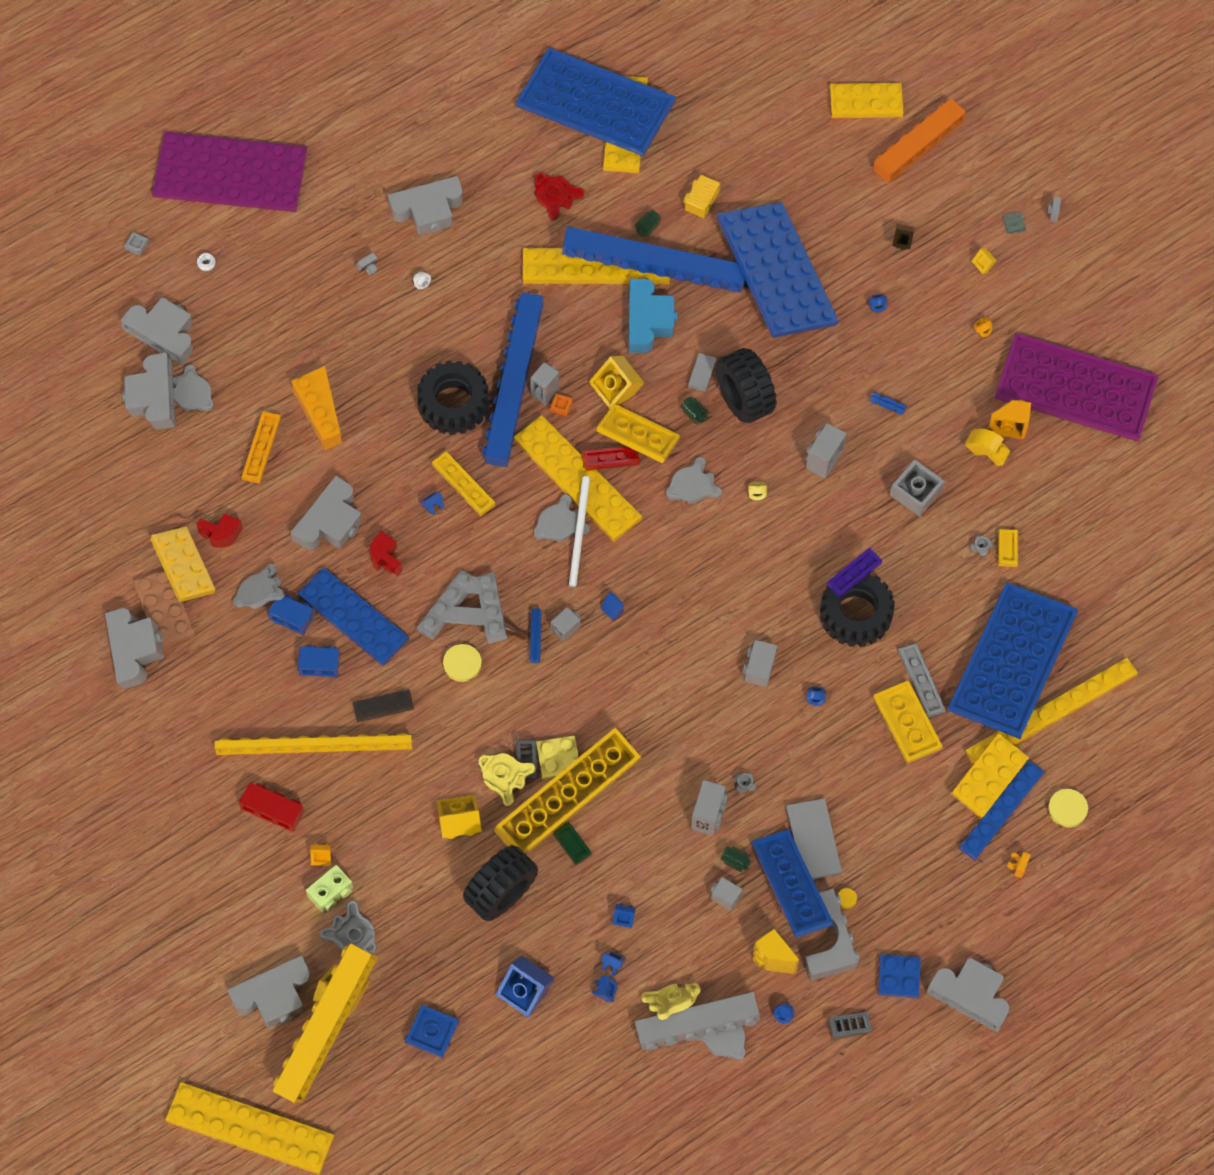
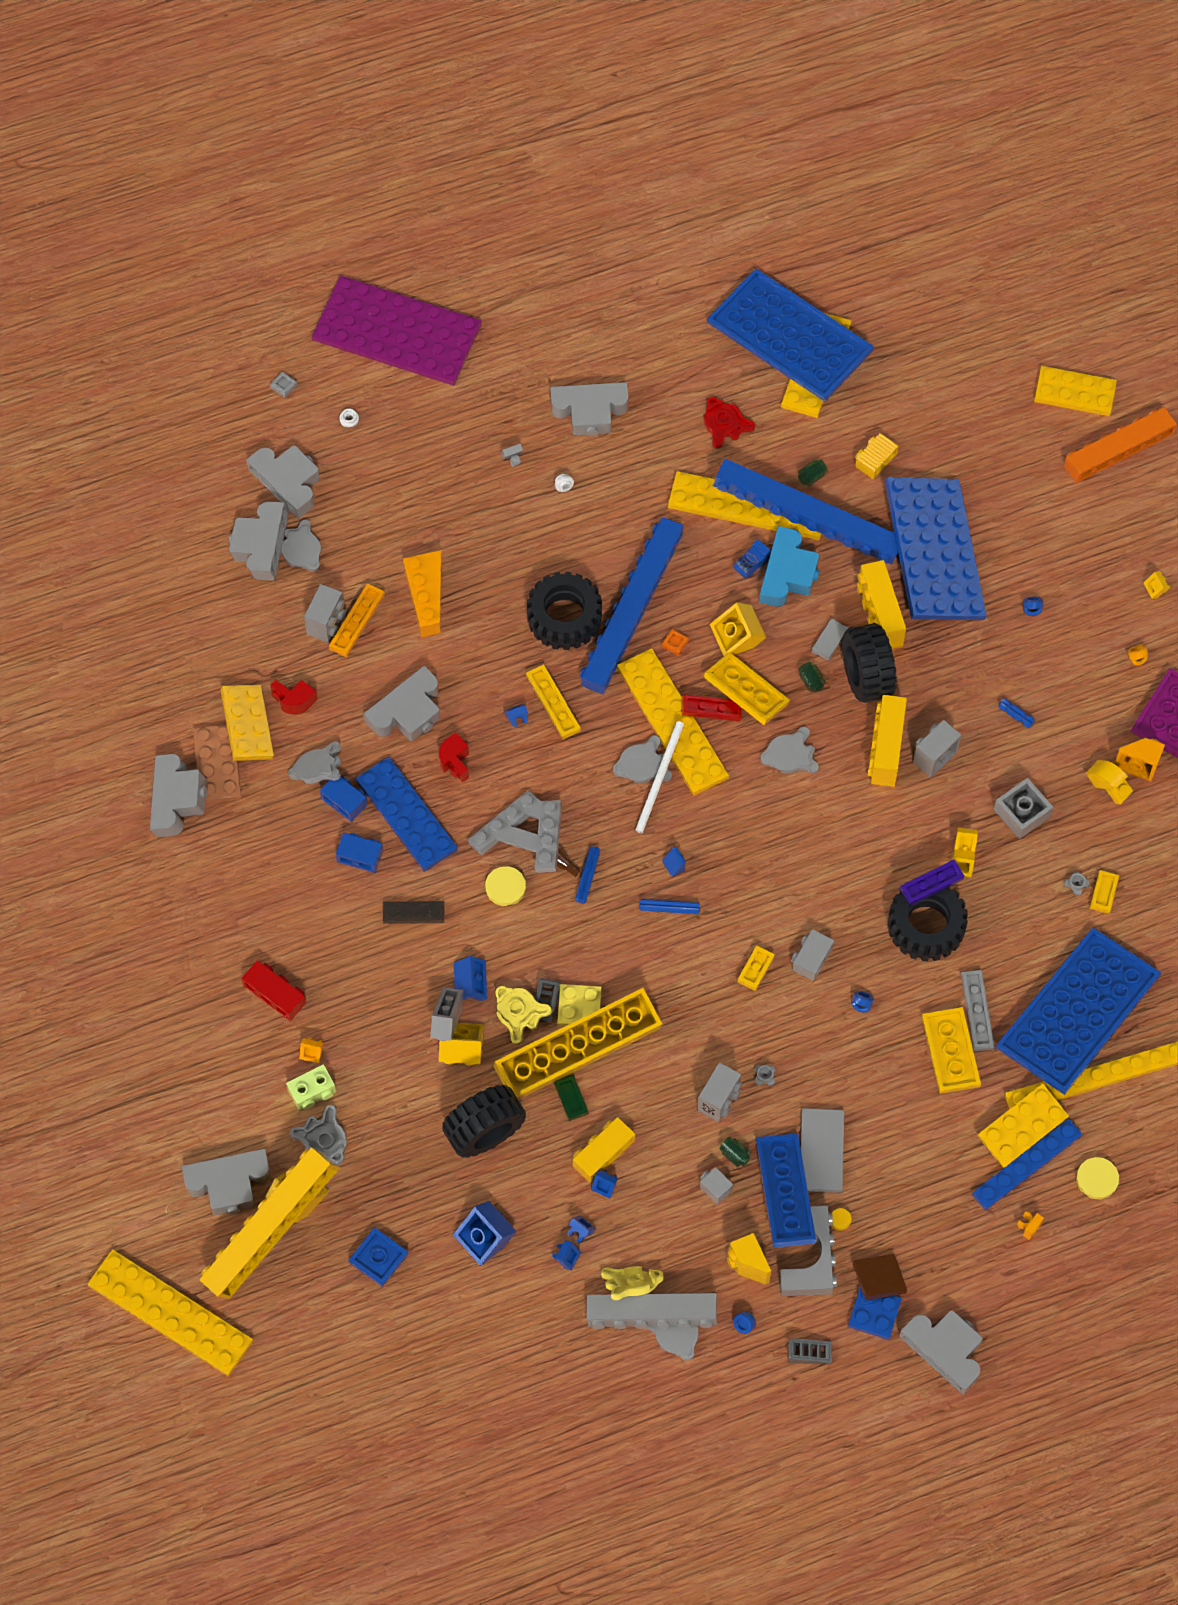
camera: 15 degrees right, 0 degrees up
(230, 447) = (324, 613): none -> light grey brick
(306, 744) = (336, 937): yellow plate -> none
(440, 792) = (446, 1014): none -> light grey brick
(451, 755) = (471, 977): none -> blue panel
(544, 383) = (662, 616): light grey brick -> none
(566, 624) = (621, 869): light grey brick -> none
(613, 314) = (752, 559): none -> blue leg
(614, 884) = (603, 1149): none -> yellow brick
(618, 648) = (669, 906): none -> blue axle
(711, 687) = (756, 968): none -> yellow plate
(740, 326) = (881, 601): none -> yellow brick
(757, 488) = (856, 772): light yellow tile -> none
(779, 453) = (887, 740): none -> yellow brick
(874, 536) = (965, 850): none -> yellow brick
(896, 942) = (879, 1277): none -> reddish brown tile
(903, 236) = (1076, 542): dark brown brick -> none

